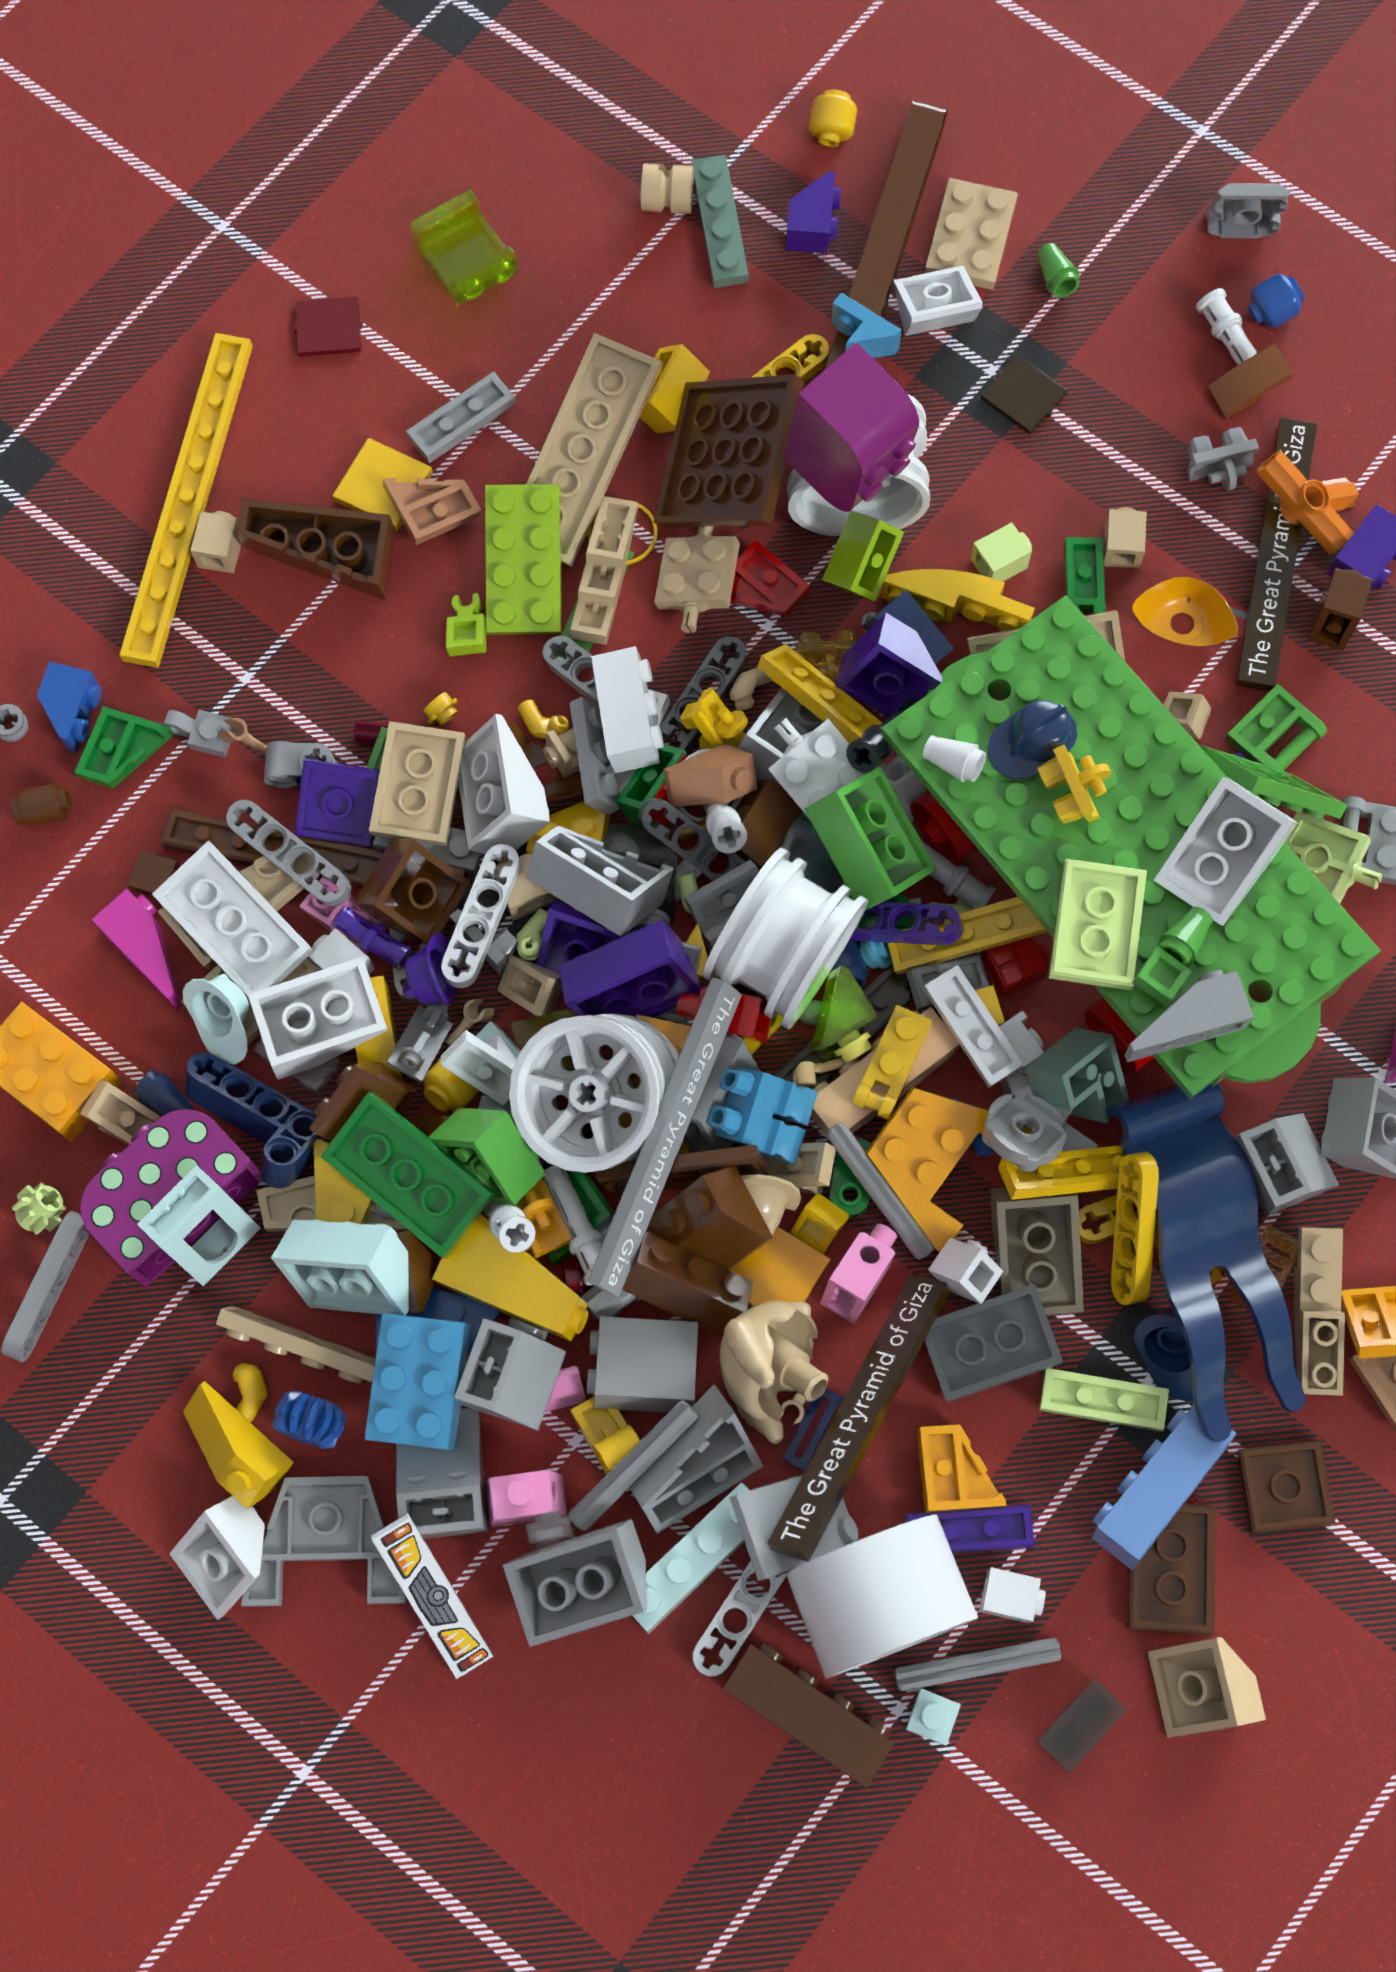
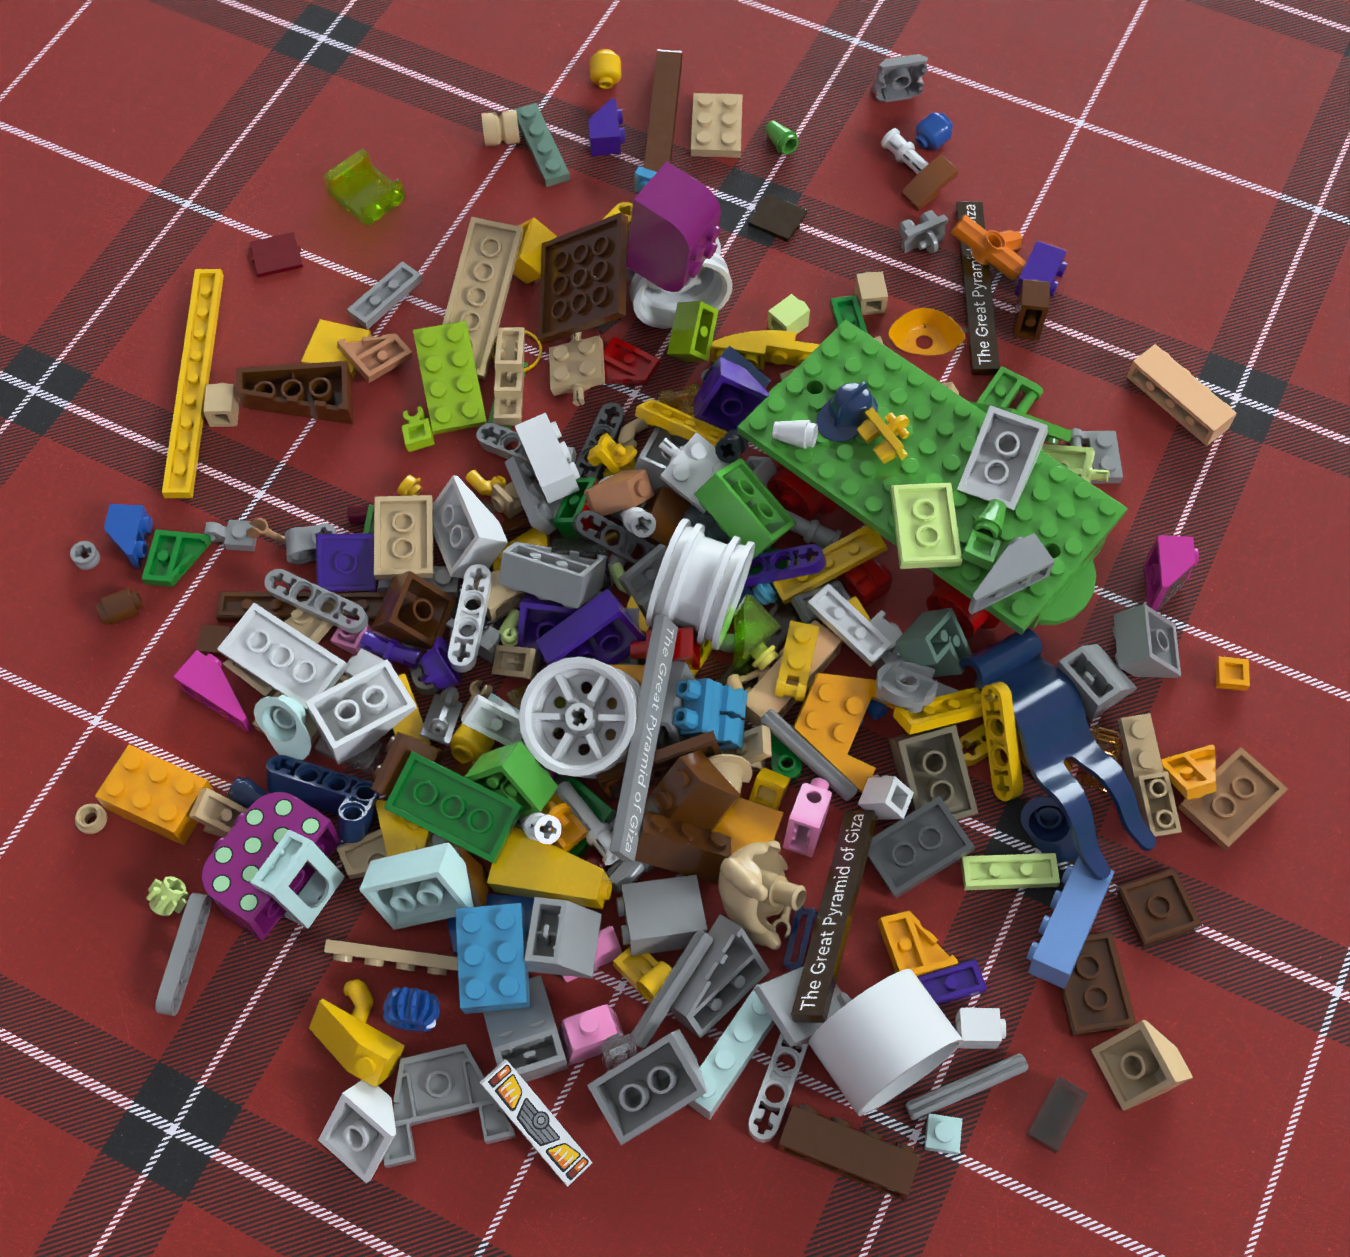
camera: 15 degrees left, 10 degrees down
(936, 300) = (708, 165): white slope -> none

